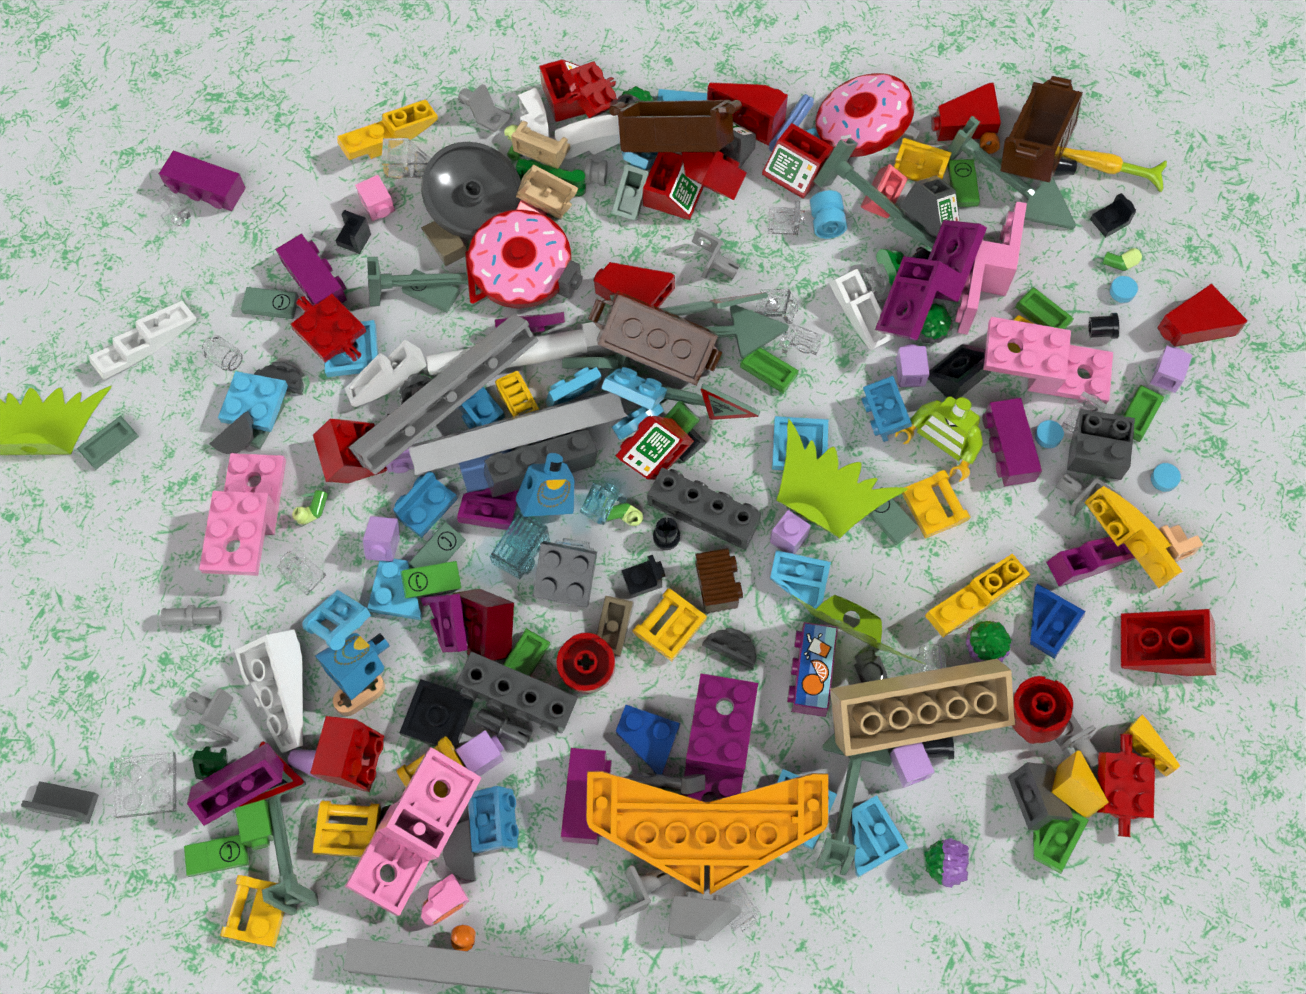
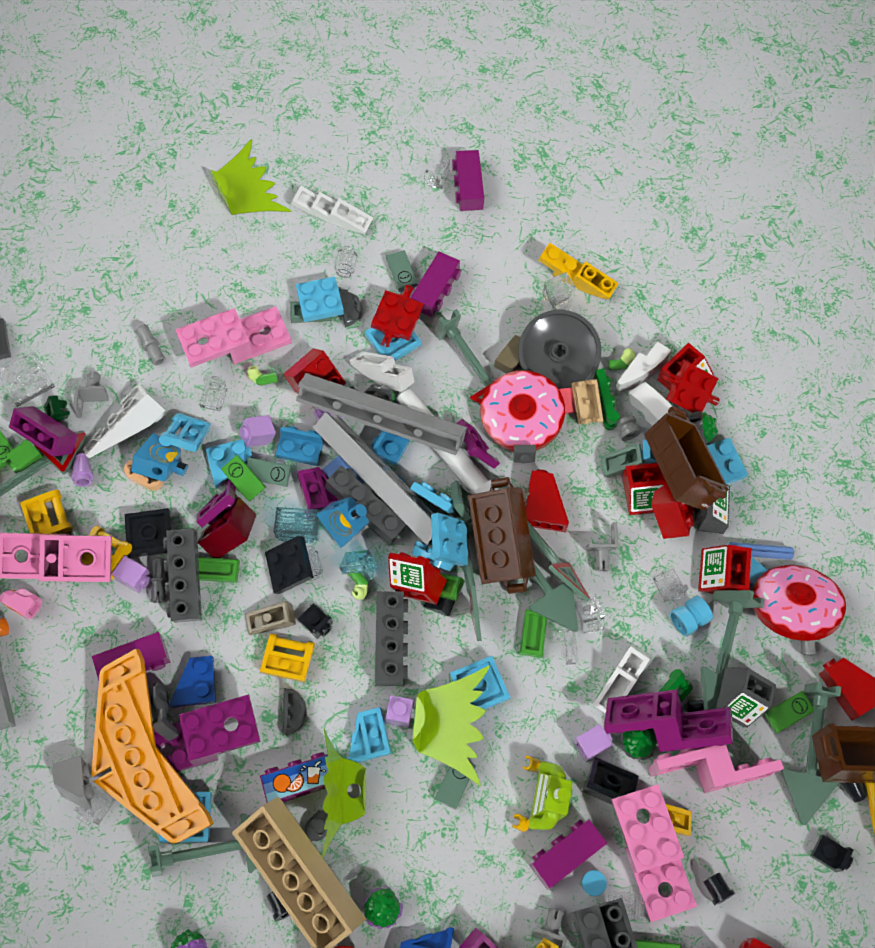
camera: 60 degrees right, 0 degrees up
(107, 442) = (249, 231): sand green tile -> none
(236, 436) = (288, 302): dark grey tile -> none
(347, 753) = (93, 488): red slope -> none
(354, 232) = (483, 294): black panel -> none
(375, 198) = (518, 292): bright pink brick -> none
(437, 296) = (465, 374): sand green tile -> none
(459, 854) = (60, 596): dark grey tile -> none
(483, 107) = (636, 324): light grey bracket -> none
(493, 819) = (90, 606): dark azure bracket -> none
(511, 385) = (419, 457): yellow slope -> none
(539, 146) = (621, 376): tan hinge -> none
(574, 651) = (226, 623): red brick -> none
(642, 886) = (83, 731): light grey bracket -> none
(672, 539) = (355, 628): black bush -> none
(717, 580) = (337, 675): reddish brown brick -> none
(761, 109) = (748, 511): red slope -> none
(874, 835) = (188, 885): medium azure wing -> none
(877, 284) = (648, 682): clear bracket -> none
(887, 407) = (542, 737): dark azure bracket -> none
(888, 182) = (747, 652): coral slope -> none
(911, 764) = (254, 890): lavender brick -> none
(920, 160) = (785, 668): yellow hinge -> none
(927, 508) = (477, 809): yellow plate -> none
(977, 596) = (418, 882): yellow slope -> none
(994, 144) = (840, 716): orange hinge -> none
(1043, 310) = (705, 832): bright green tile -> none
(1123, 262) = (793, 882): arm -> none
(1123, 289) = (766, 892): medium azure tile -> none

